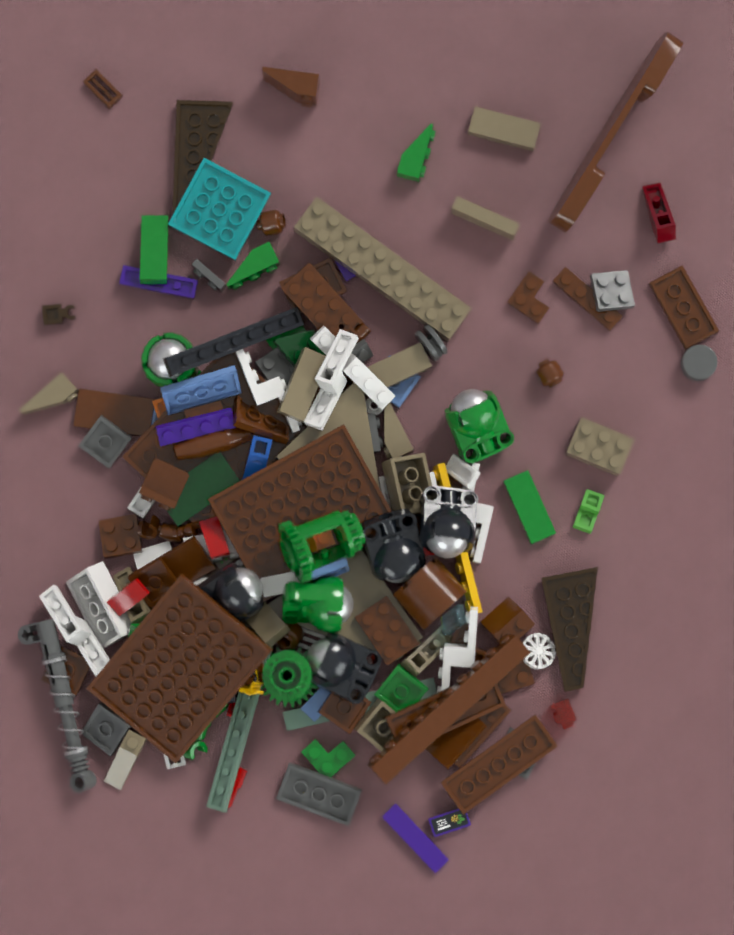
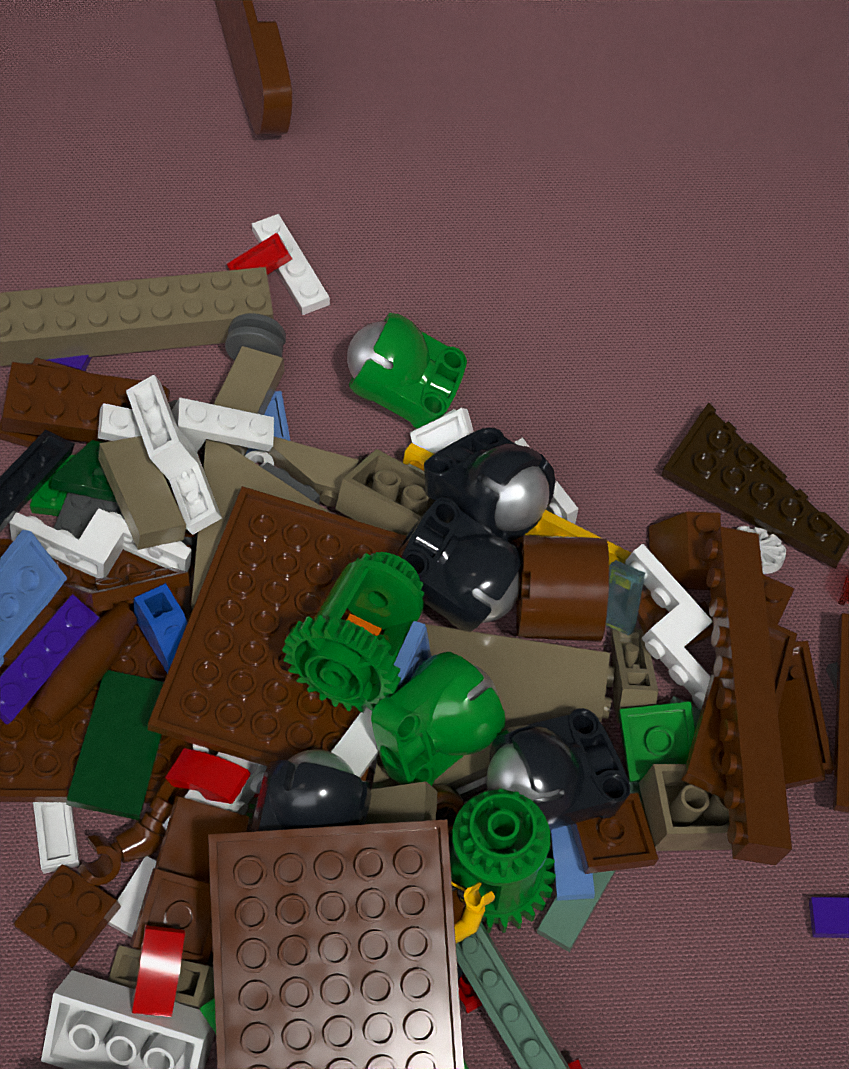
camera: 50 degrees left, 25 degrees down
(163, 484) = (65, 771): reddish brown bracket -> none
(319, 794) = (705, 990): dark grey tile -> none
(326, 762) = (667, 938): green plate -> none
(386, 630) = (557, 681): reddish brown plate -> none
(413, 158) = (39, 195): green slope -> none
(478, 296) = (269, 254): none -> red tile
(485, 218) = (184, 184): dark tan piece -> none
(493, 308) = (296, 274): none -> white plate
(504, 128) = (115, 102): dark tan piece -> none
(524, 298) = (319, 232): reddish brown plate -> none
(529, 507) = (560, 414): green piece -> none
(549, 373) = (426, 267): reddish brown head -> none
(584, 297) = (384, 178): reddish brown plate -> none
(588, 511) = (627, 364): bright green slope -> none
(599, 446) = (564, 289): dark tan brick -> none
(612, 291) = (402, 145): plate -> none
(659, 213) = (374, 50): dark red slope -> none
(683, 307) = (492, 110): reddish brown tile -> none
(699, 362) = (569, 139): dark grey head -> none

